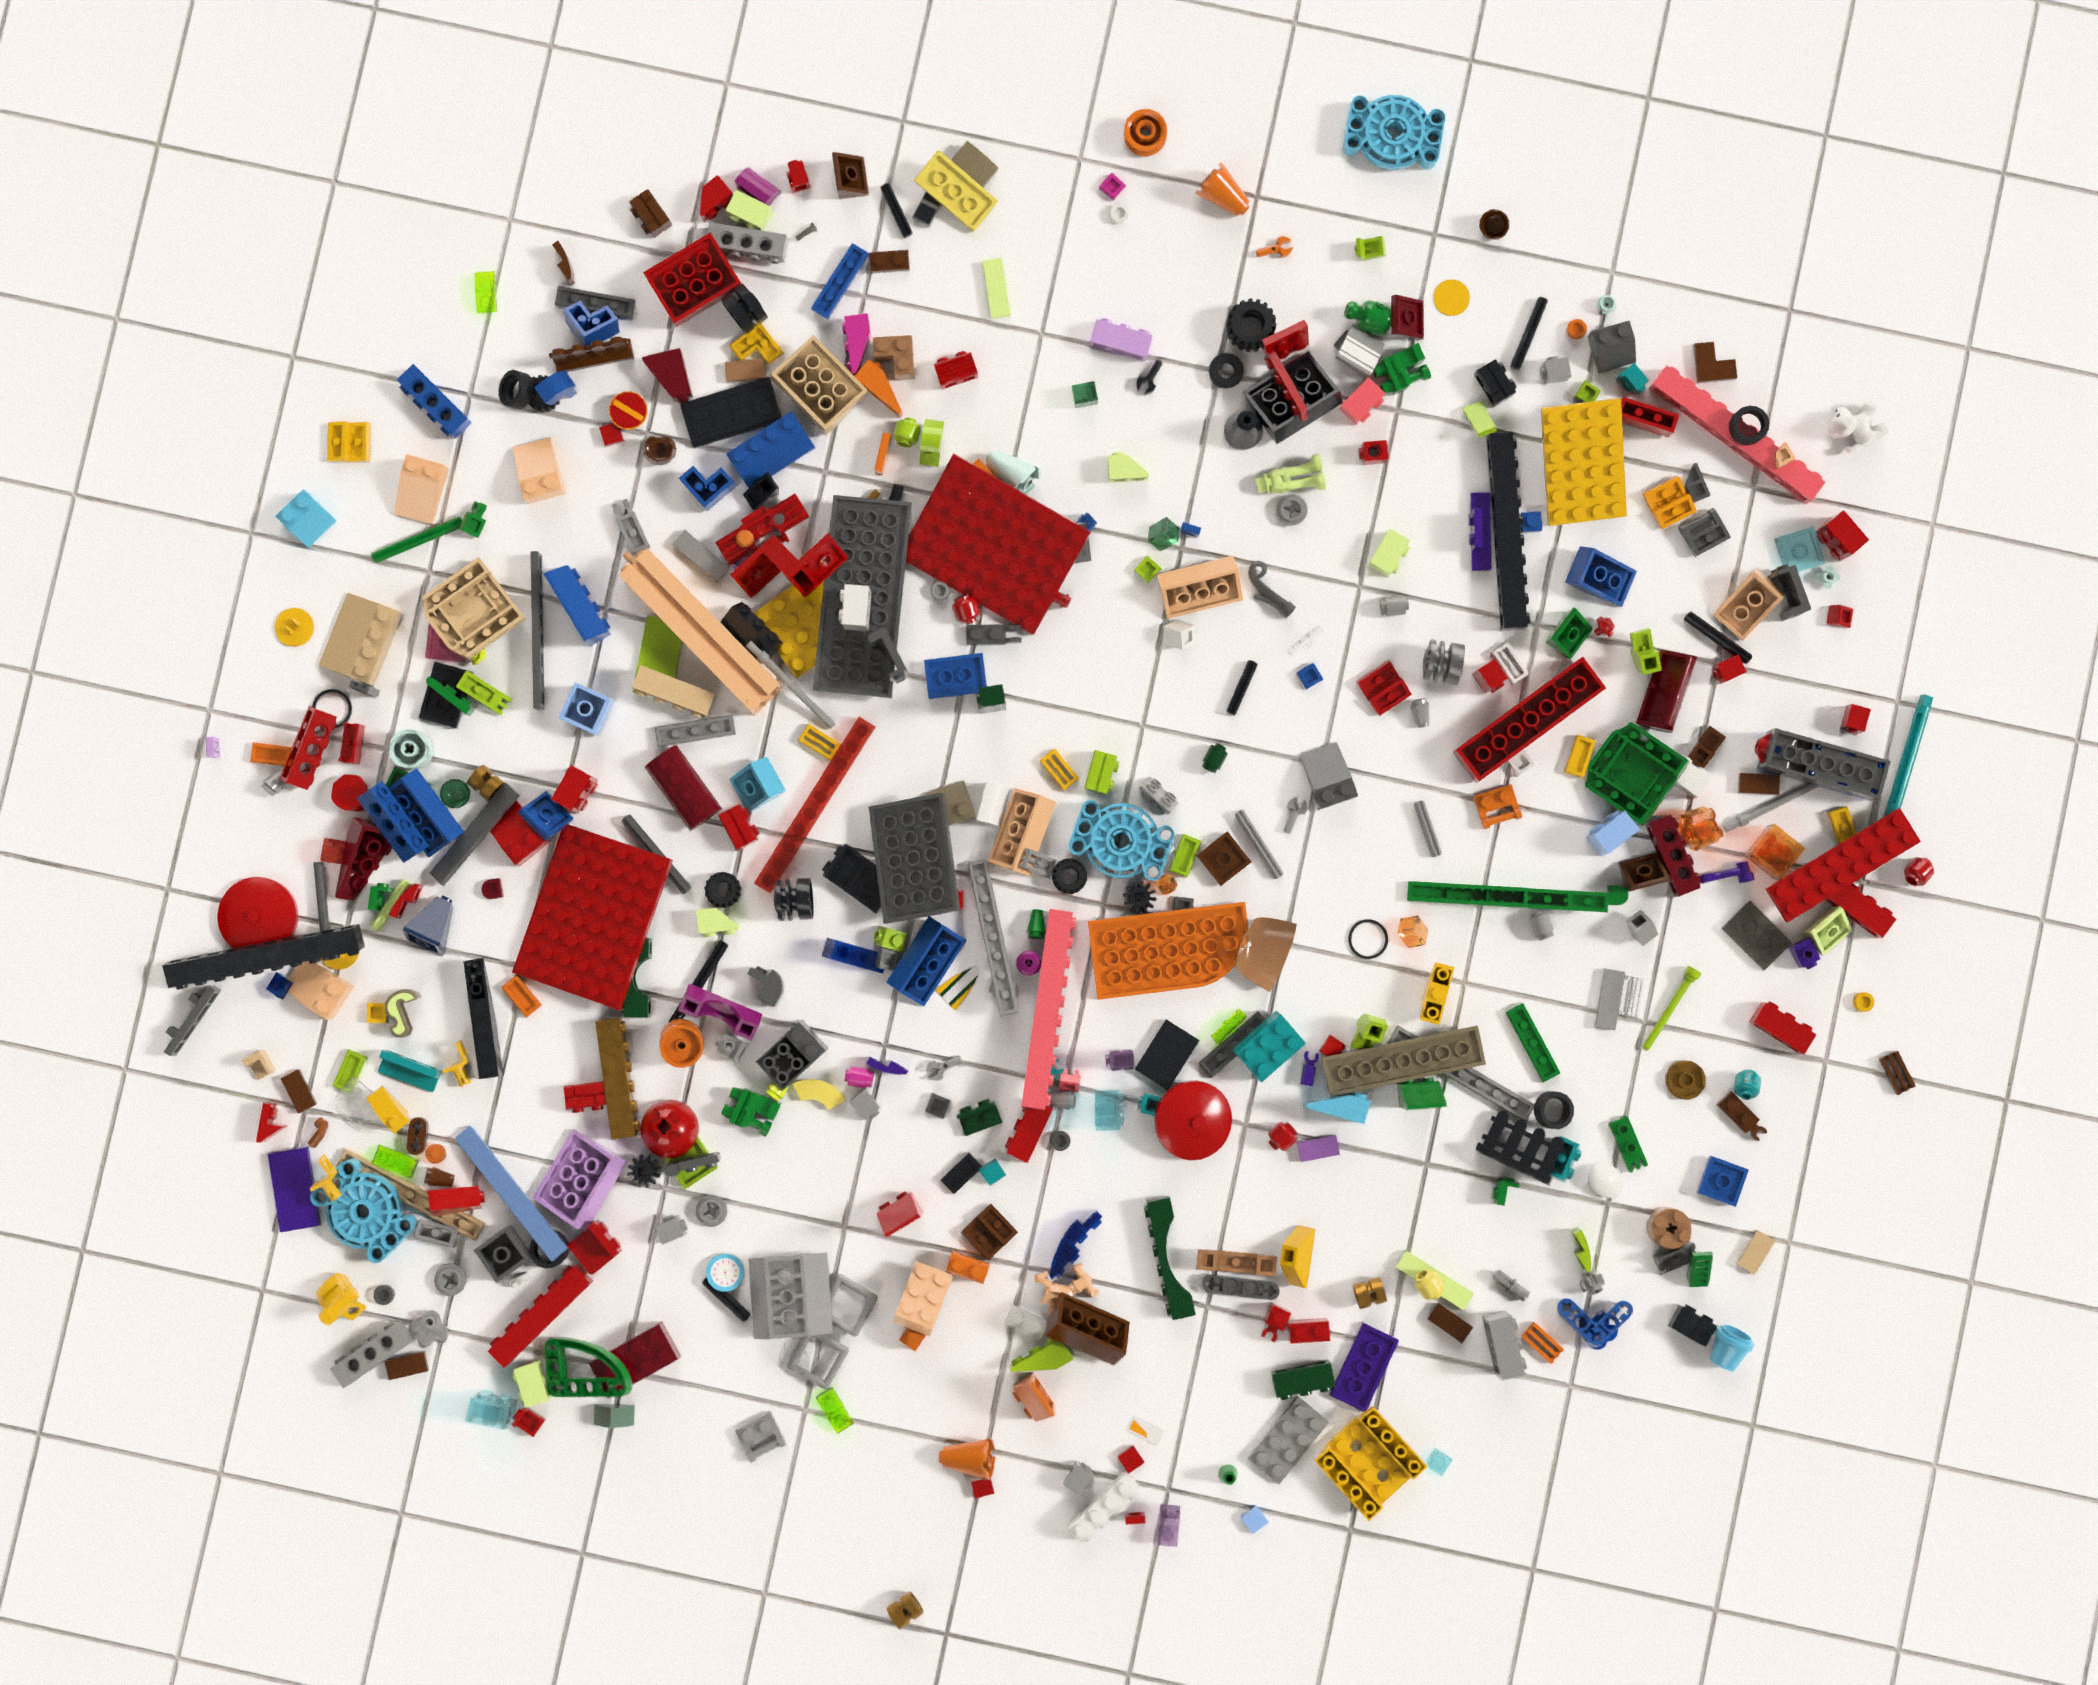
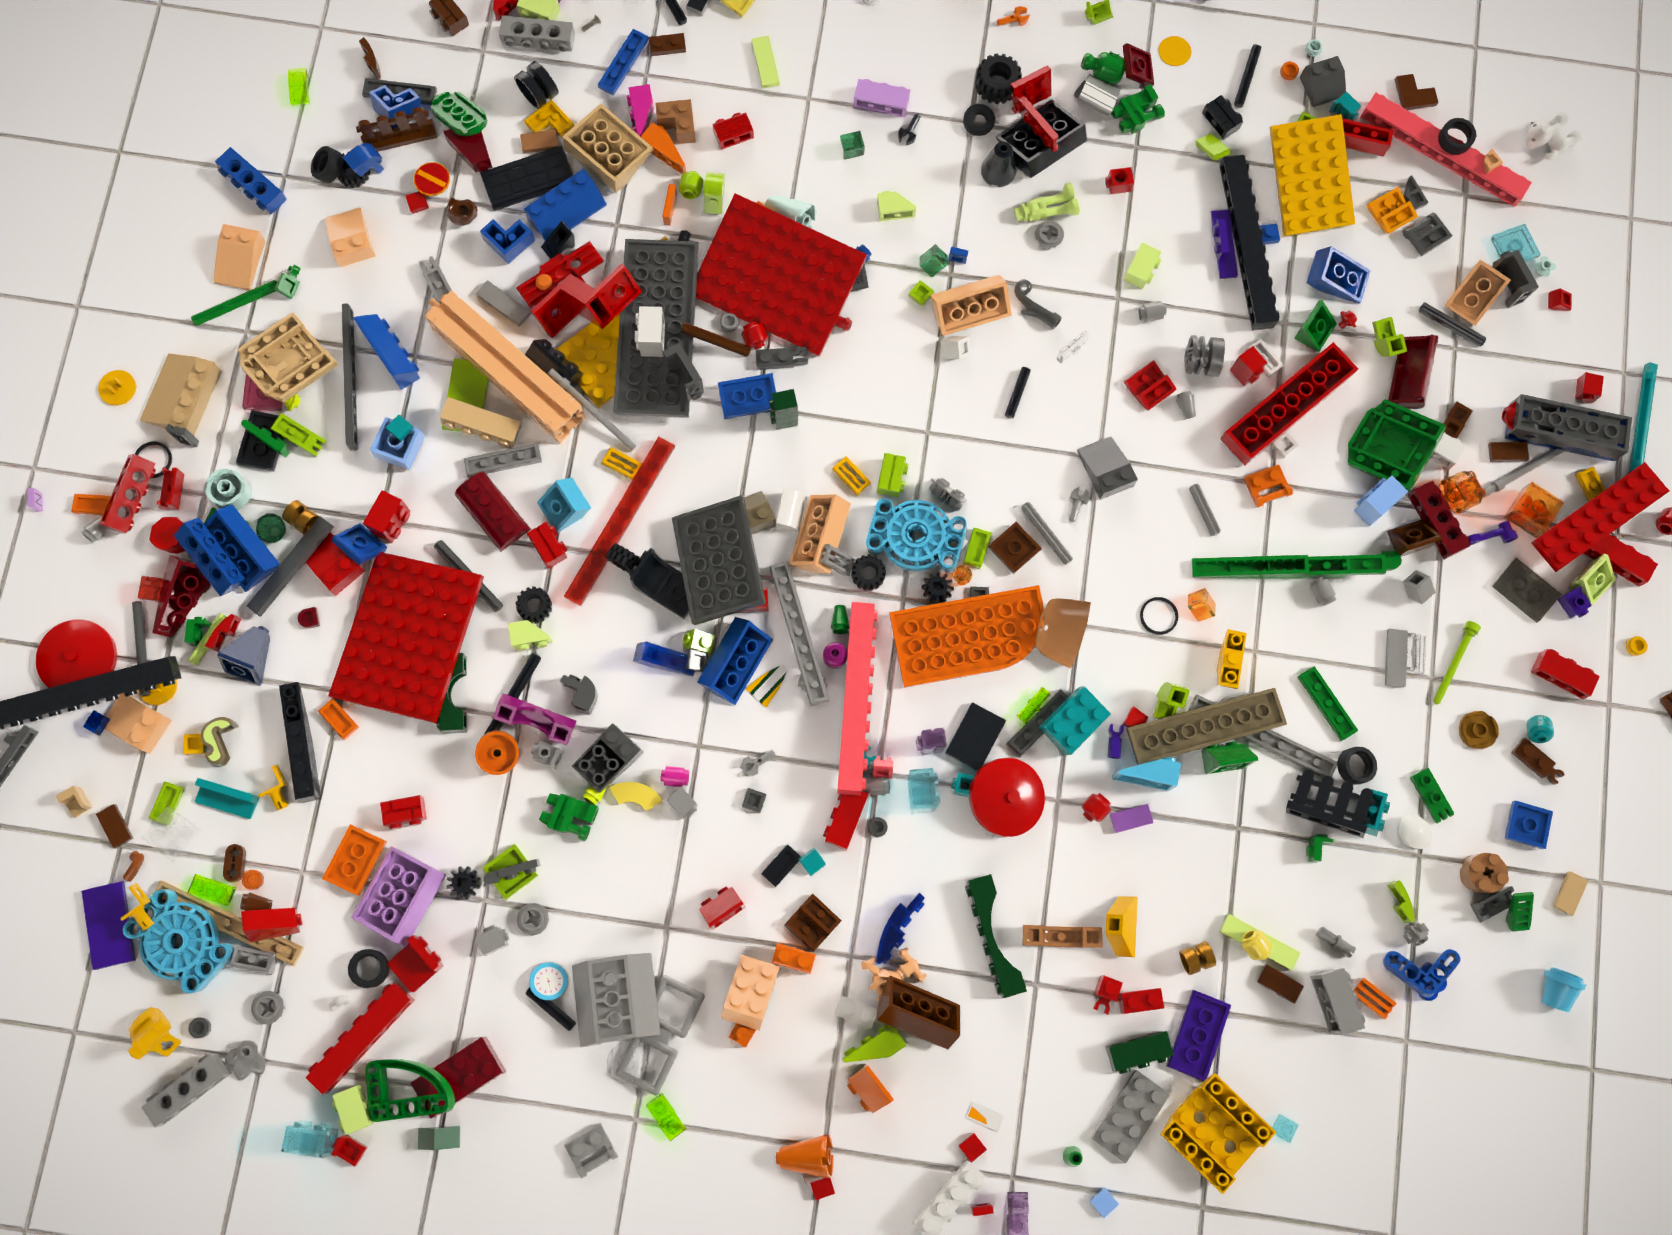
camera: 10 degrees left, 10 degrees down
(266, 1127) = (80, 862): red slope -> none
(306, 518) = (128, 287): medium azure slope -> none
(348, 441) = (170, 221): yellow slope -> none
(388, 1109) = (204, 836): yellow slope -> none
(406, 1365) = (222, 1100): reddish brown tile -> none
(503, 1253) = (321, 975): dark grey brick -> none
(511, 1193) = (329, 914): medium blue tile -> none
(536, 1140) = (354, 860): none -> orange plate
(590, 696) = (399, 427): none -> teal tile
(616, 1078) = (434, 792): pearl gold brick -> none
(659, 336) = (459, 113): none -> green tile
(680, 1128) = (495, 843): red piece -> none
(692, 279) = (487, 63): red slope -> none
(794, 899) = (603, 607): black wheel -> none
(816, 848) = (622, 558): none -> black tyre
(892, 1068) = (707, 766): dark purple slope -> none
(923, 613) = (715, 339): none -> reddish brown axle
(979, 1117) = (795, 807): dark green bracket -> none
(1079, 1478) = (921, 1170): light grey brick -> none
(1214, 758) = (998, 456): dark green brick -> none
(1240, 1289) = (1068, 961): dark grey beam -> none
(1309, 676) = (1080, 379): blue tile -> none
(1362, 401) = (1105, 138): coral piece -> none
(1555, 370) = (1276, 103): light grey brick -> none
(1579, 756) = (1339, 436): yellow tile -> none
(1692, 1325) = (1520, 970): black brick -> none
(1728, 669) = (1467, 350): red brick -> none
(1841, 536) = (1554, 227): red brick -> none

